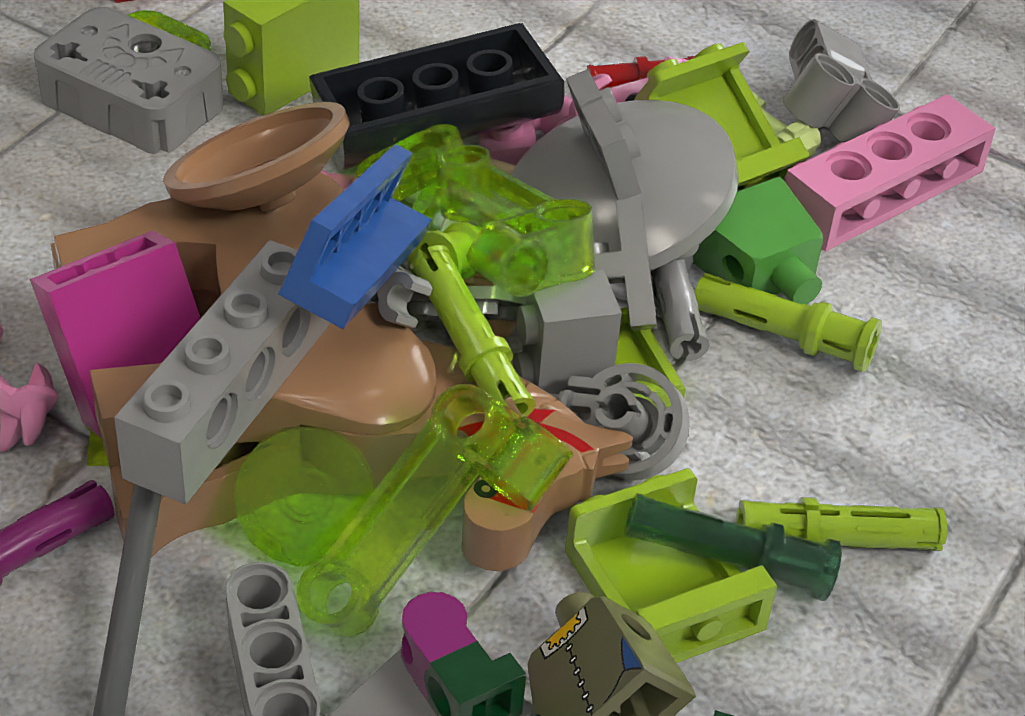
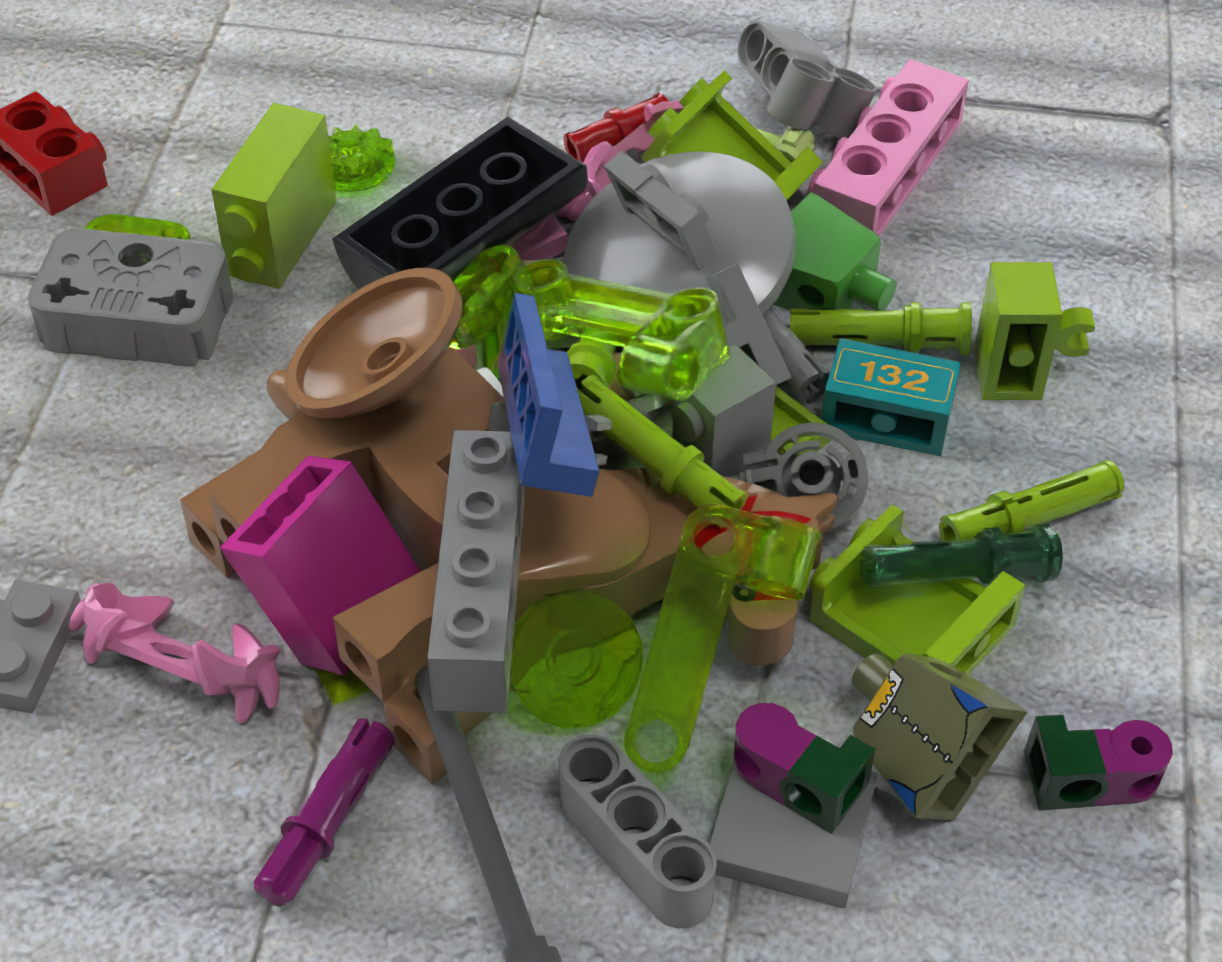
camera: 20 degrees left, 5 degrees up
(380, 29) = (362, 171): none -> clear neon green gear
(756, 379) = (890, 396): none -> teal brick
(914, 360) = (1022, 328): none -> lime brick

